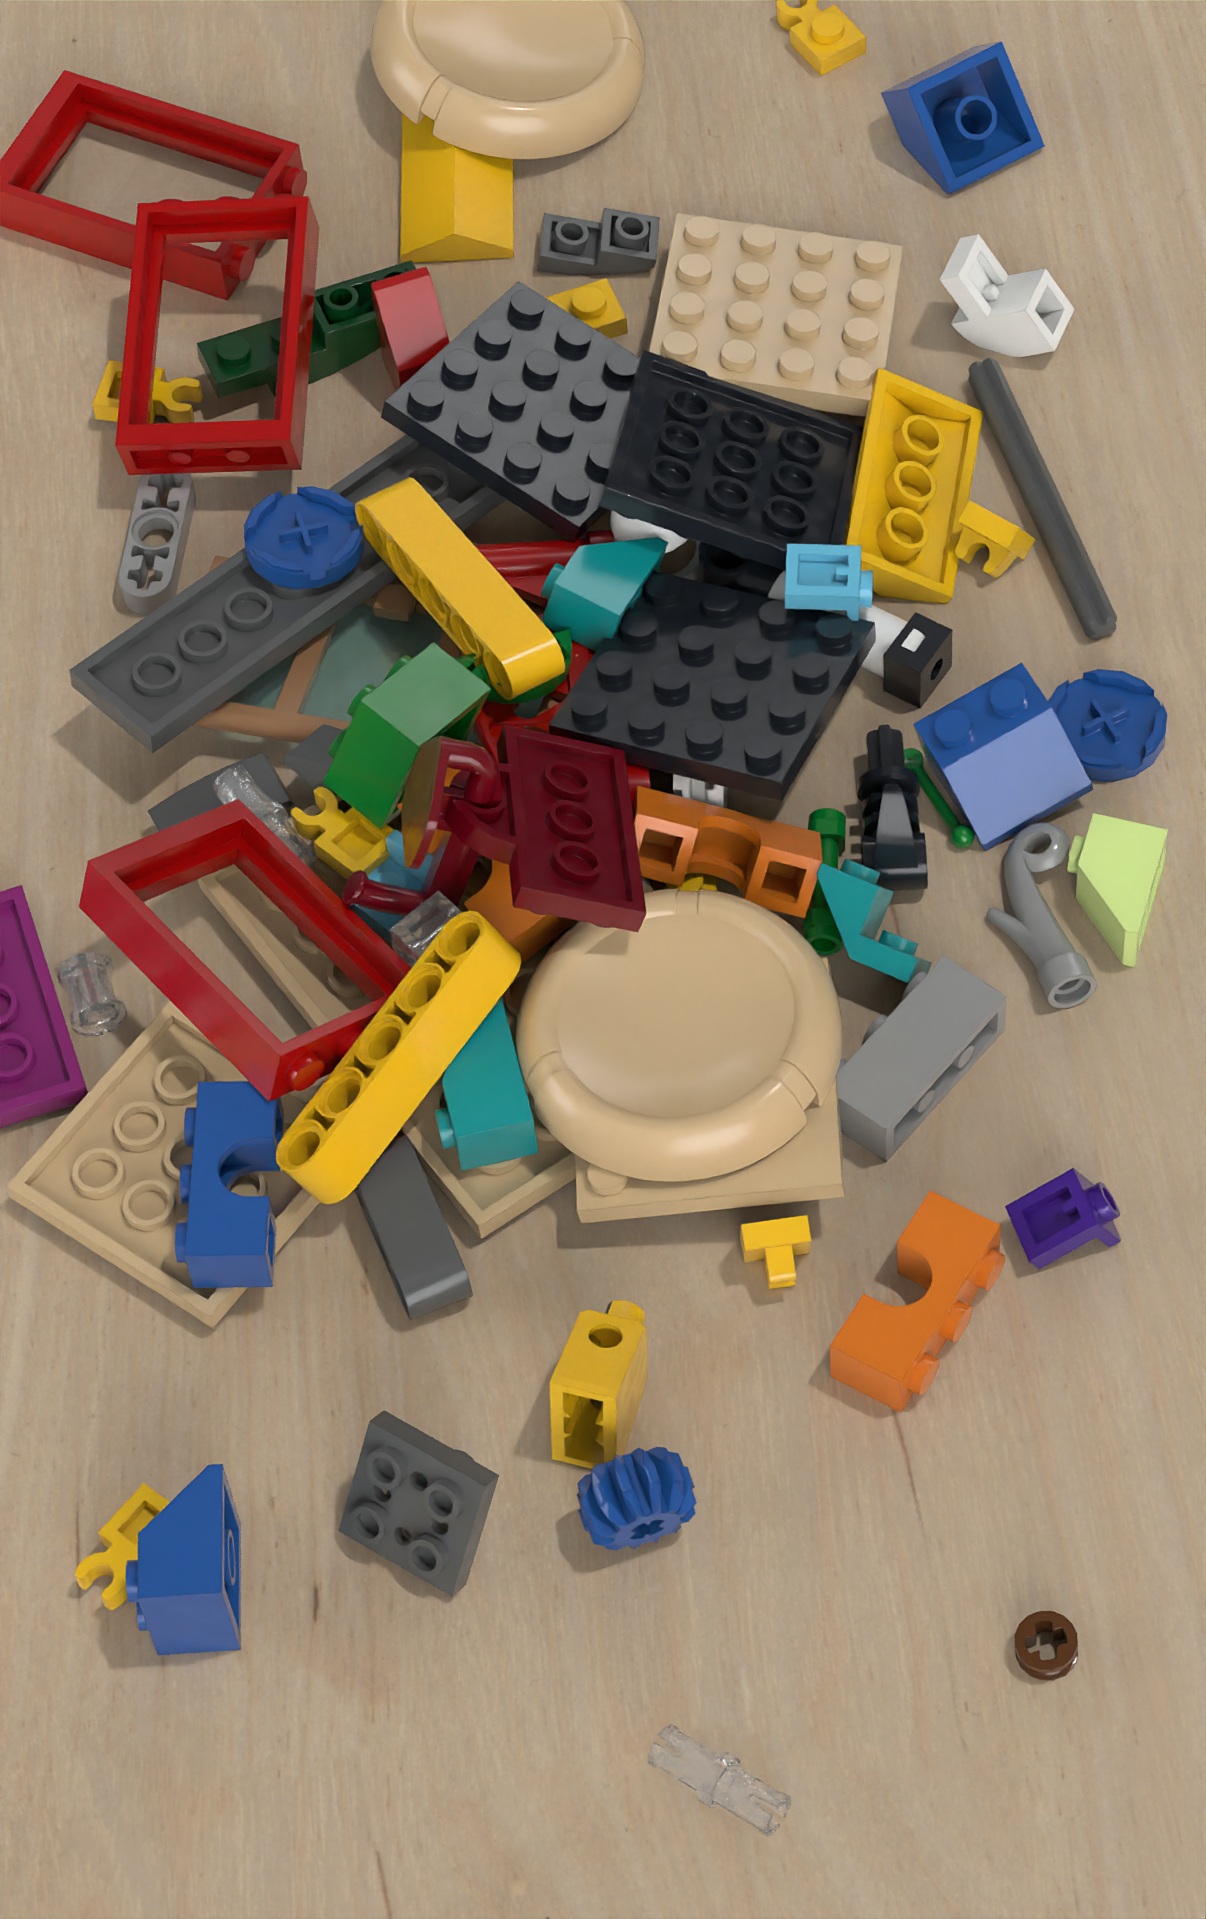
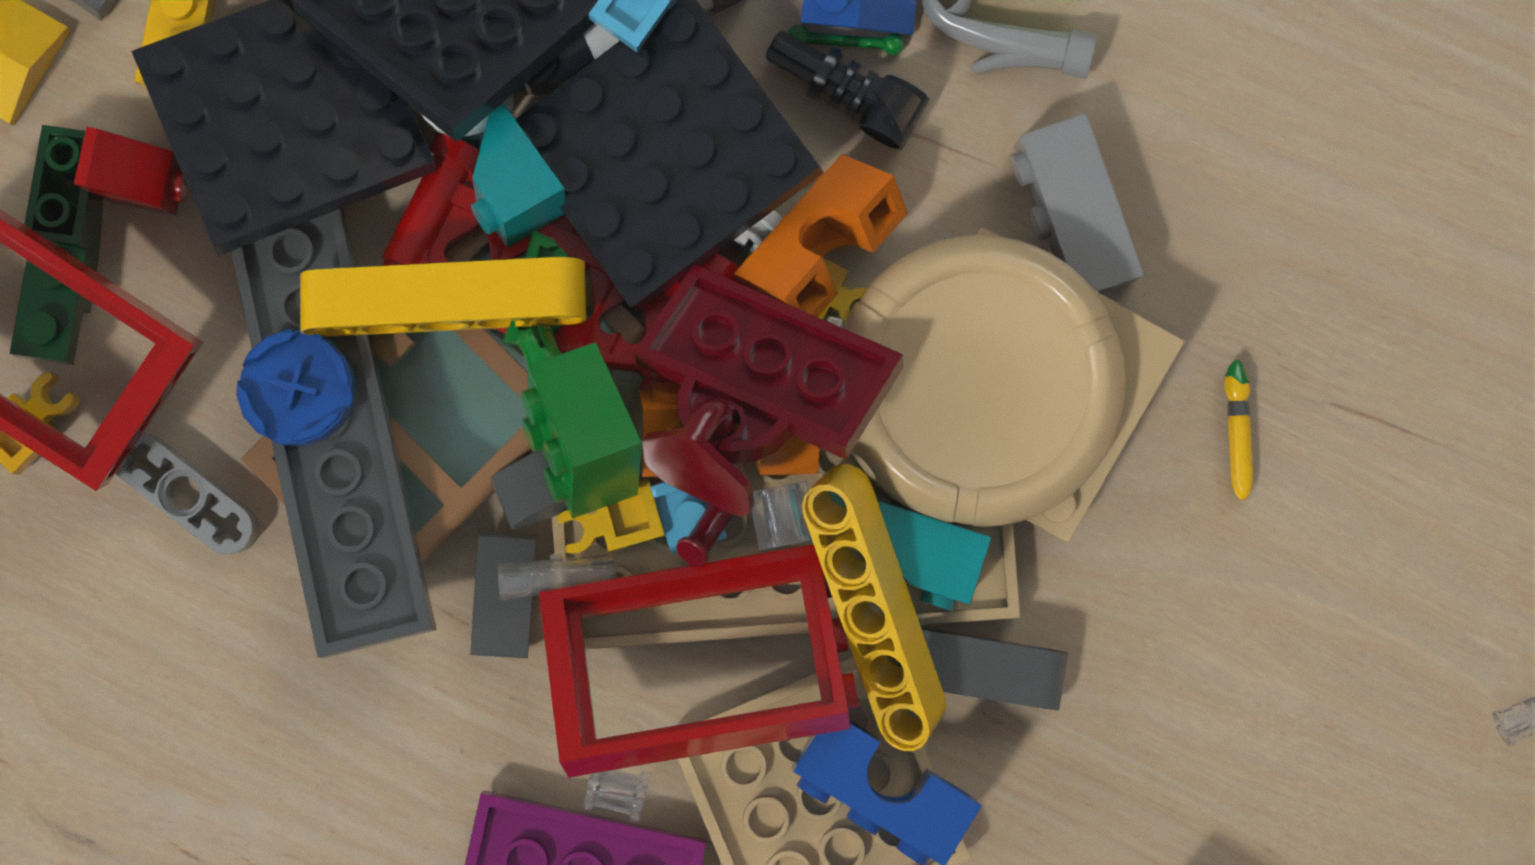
camera: 65 degrees left, 30 degrees up
(423, 1487) = (1232, 794): dark grey plate -> none
(603, 1363) = (1234, 620): yellow torso -> none
(636, 1498) = (1325, 640): blue gear -> none
(776, 1244) = (1174, 411): yellow tile -> none
(801, 1329) = (1239, 429): none -> yellow piece
(819, 923) = (830, 143): green bar -> none
(858, 912) = (926, 167): teal slope -> none
(894, 1348) = (1311, 376): orange arch -> none
(1063, 1217) = (1278, 190): dark purple bracket -> none

